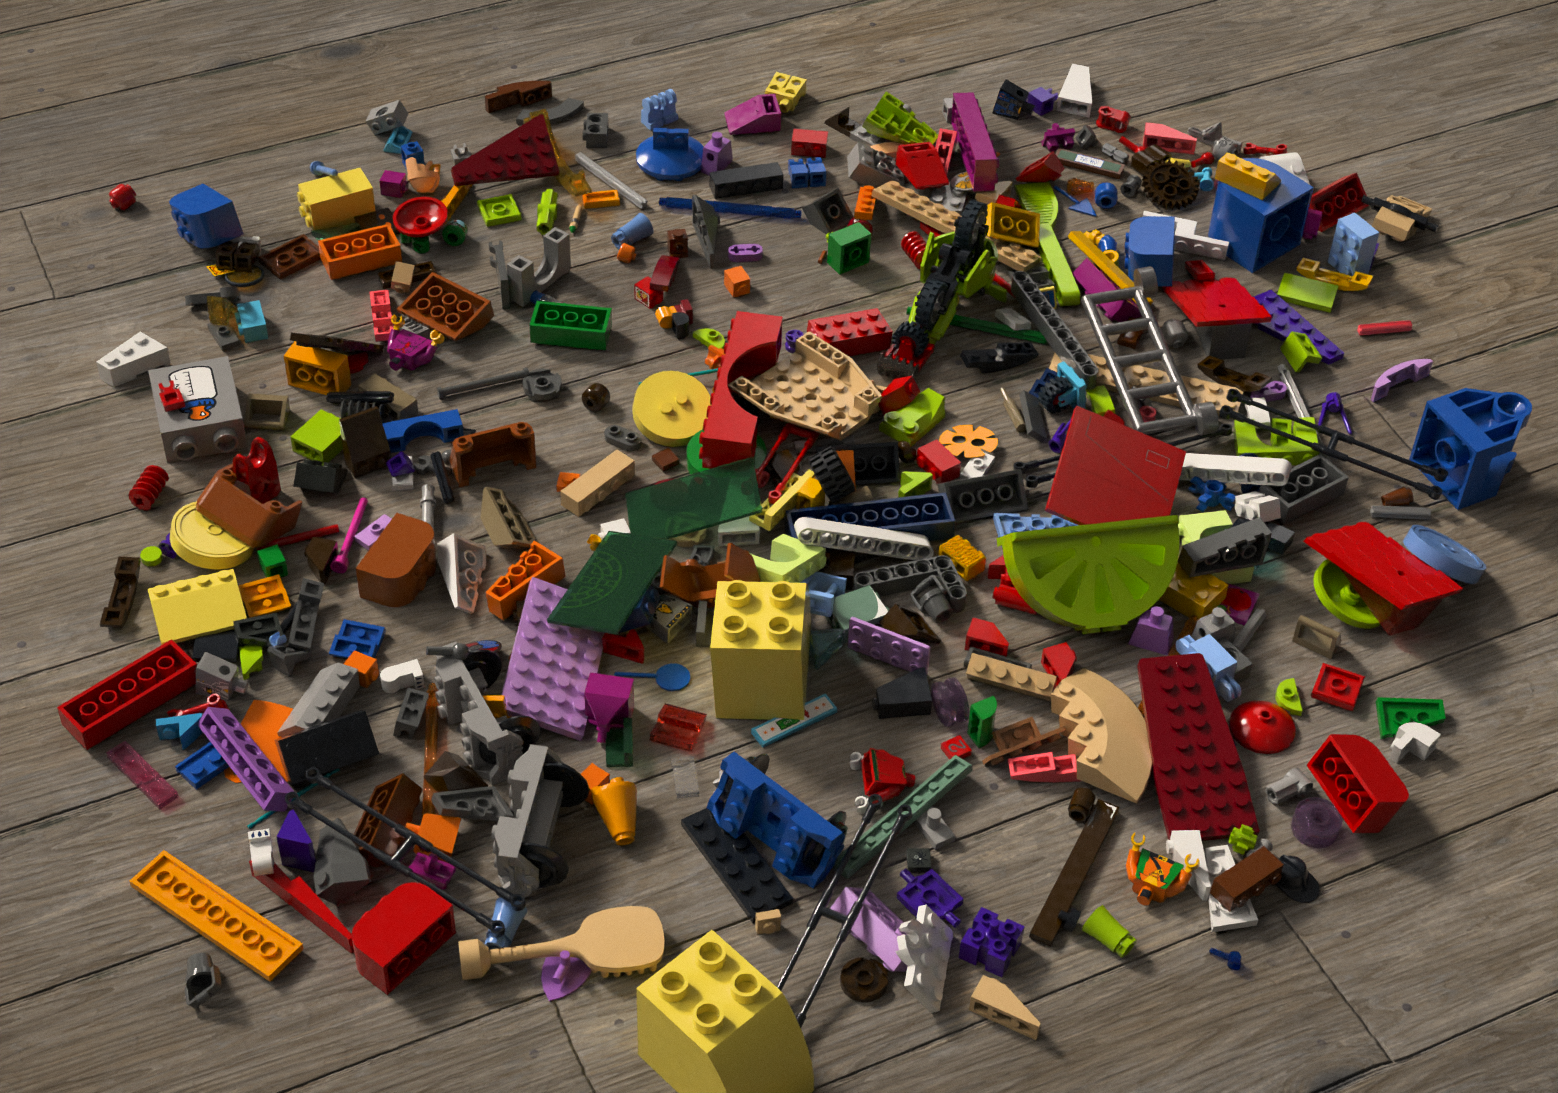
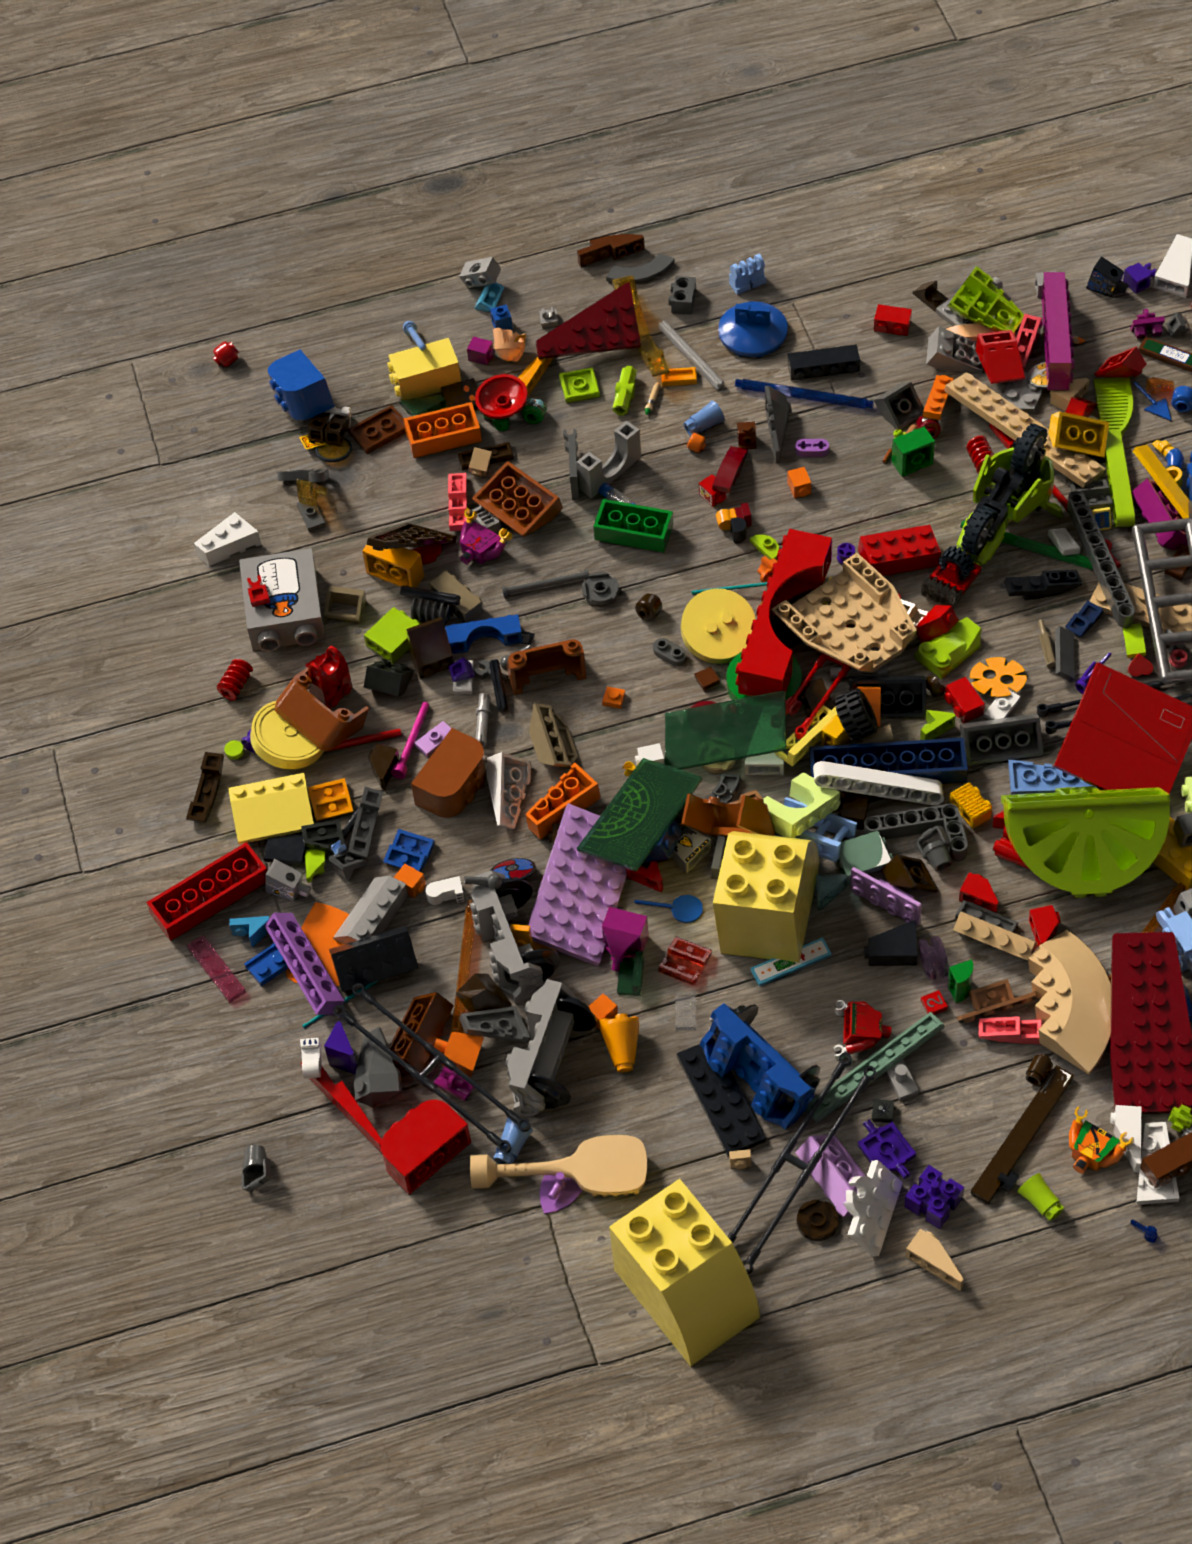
camera: 15 degrees right, 10 degrees up
(212, 701) = (279, 906): red brick -> none
(217, 915) = (271, 1109): light orange plate -> none
(251, 321) = (337, 503): medium azure brick -> none
(272, 561) = (339, 765): green brick -> none
(411, 712) = (449, 928): dark grey hinge -> none
(597, 483) = (640, 701): tan brick -> none
(716, 154) = (797, 332): medium lavender torso -> none
(755, 116) = (841, 285): magenta slope -> none
(786, 92) = (875, 257): light yellow hips -> none
(812, 171) = (879, 358): blue legs -> none
(1063, 391) = (1098, 630): plate -> none
(1153, 631) = (1138, 899): medium lavender torso -> none

